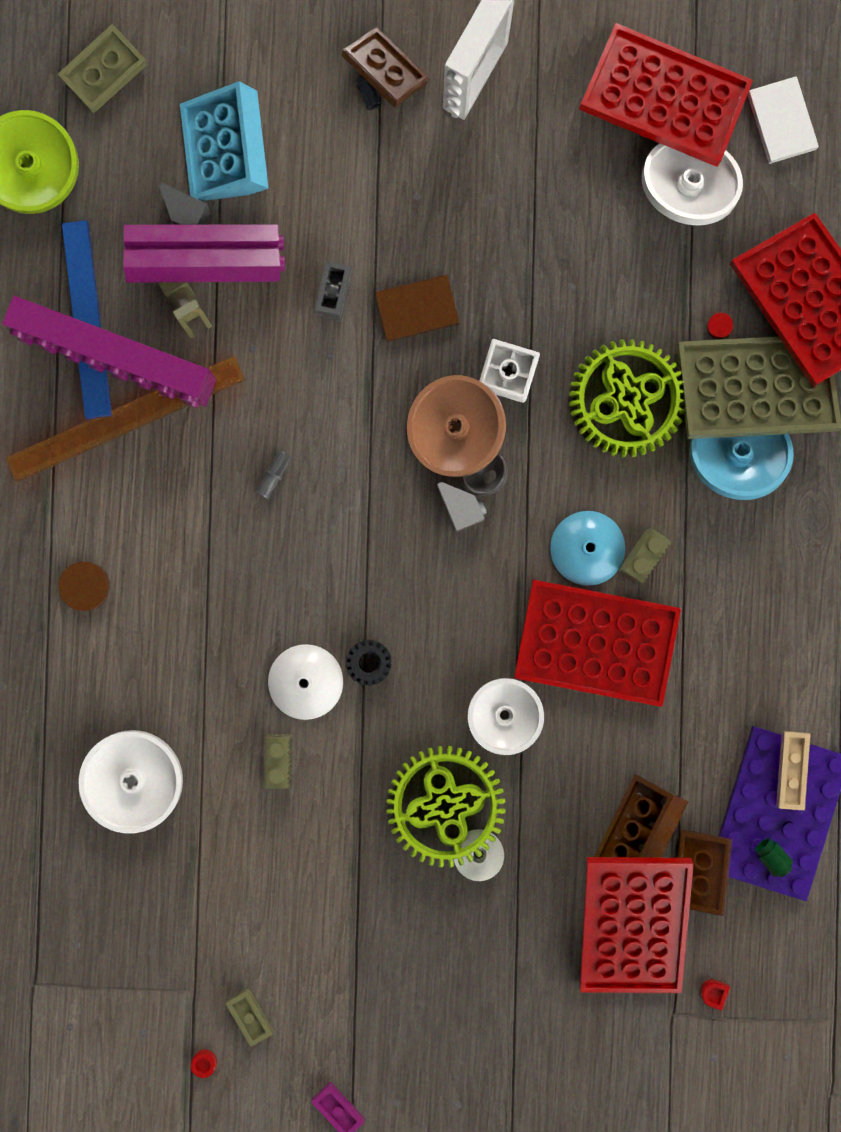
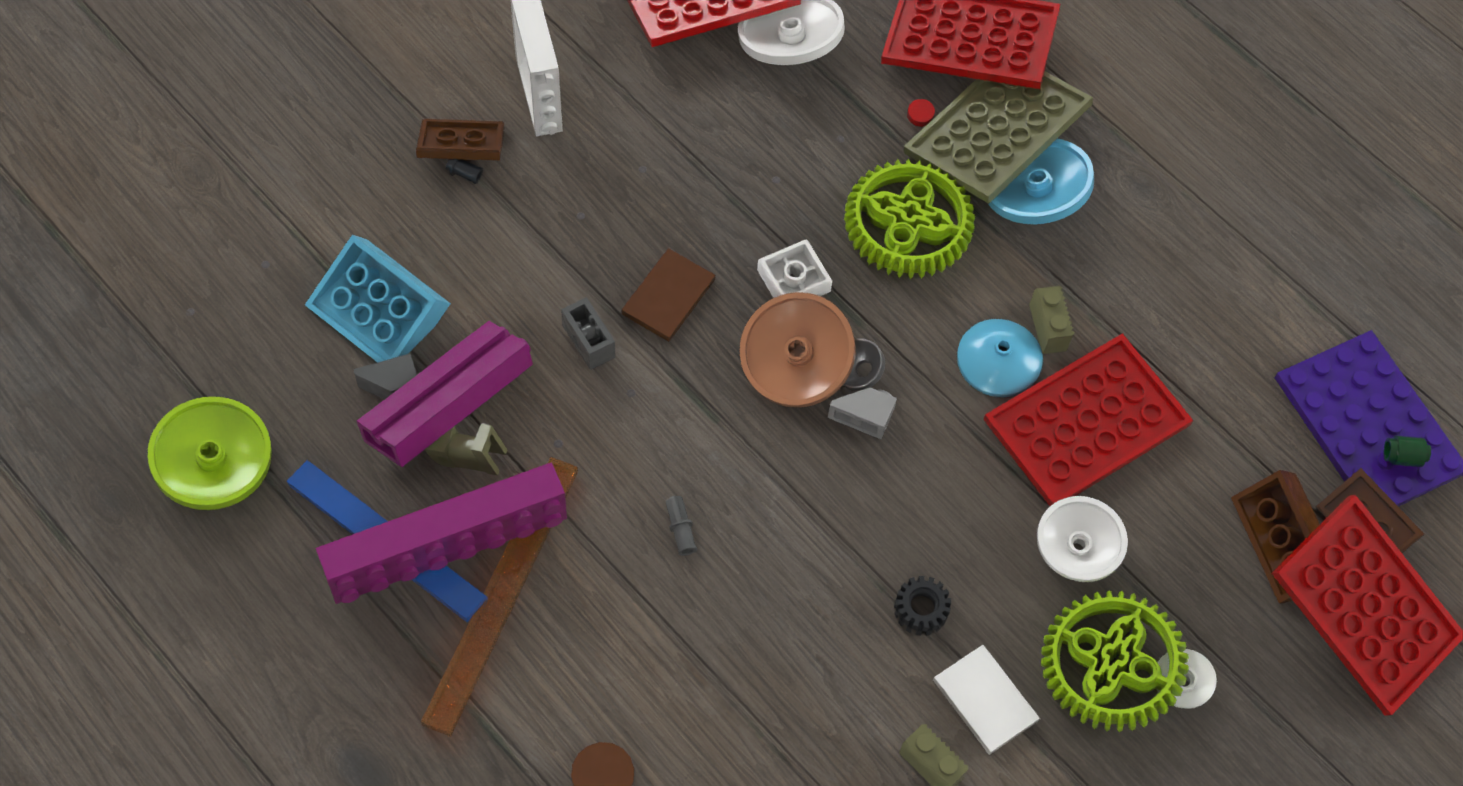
camera: 50 degrees left, 25 degrees down
(102, 68) = (209, 330): olive plate -> none
(318, 668) = (879, 693): white dish -> none
(349, 752) = (986, 699): none -> white tile
(793, 770) = (1343, 373): tan plate -> none

